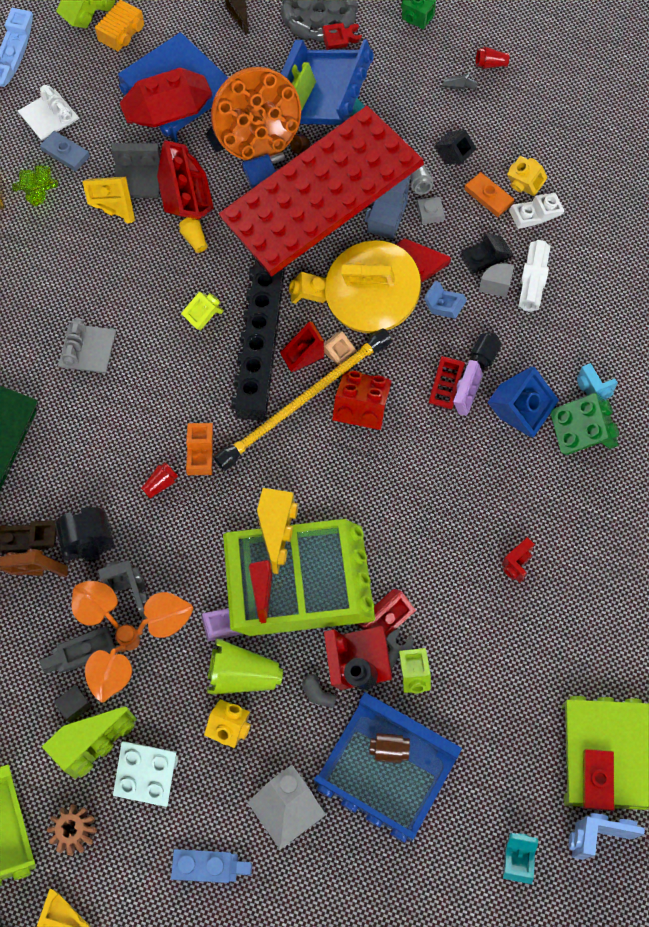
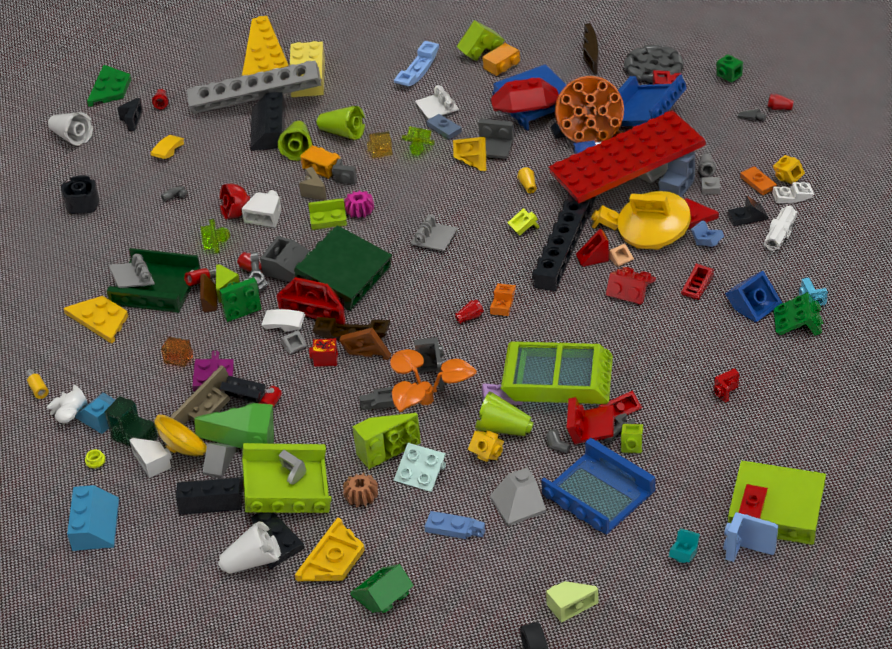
camera: 15 degrees right, 25 degrees down
(84, 534) = (406, 327): black brick -> none
(183, 183) = (526, 148): red wedge -> none
(228, 455) = (524, 303): yellow hose -> none
(261, 582) = (529, 365): red slope -> none
(275, 515) = (549, 332): yellow slope -> none
(303, 82) = (630, 100): lime hinge -> none
(368, 675) = (590, 424): black brick -> none
(389, 748) = (602, 473): reddish brown brick -> none
(455, 147) = (737, 148): black brick -> none
(468, 387) = (712, 285): lavender plate -> none
(486, 349) = (731, 266): black brick -> none
(497, 279) = (750, 227): light grey brick -> none

